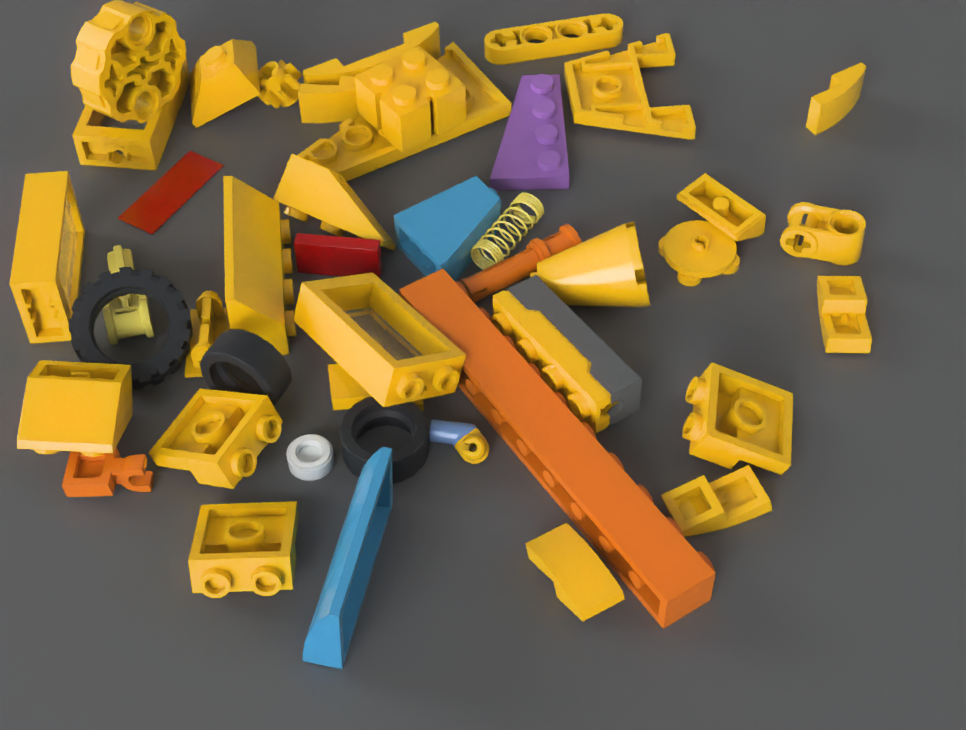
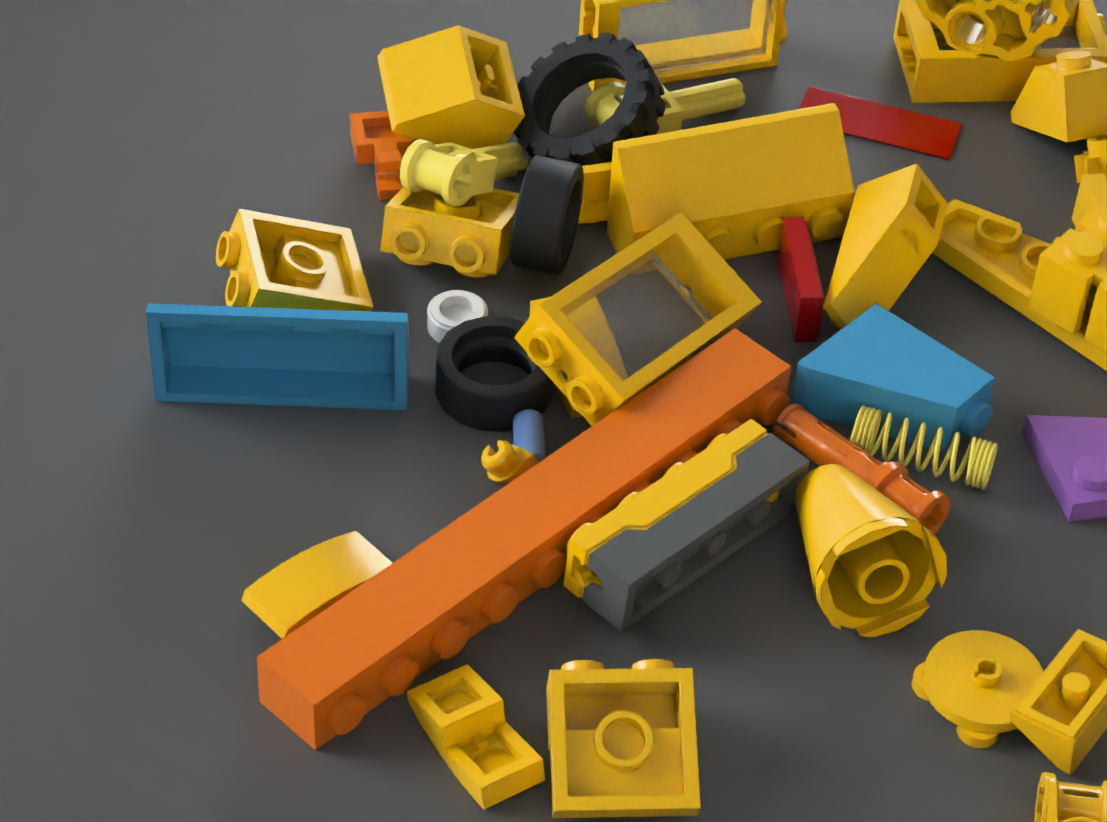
camera: 75 degrees right, 5 degrees down
(179, 415) = (458, 170): none -> light yellow connector

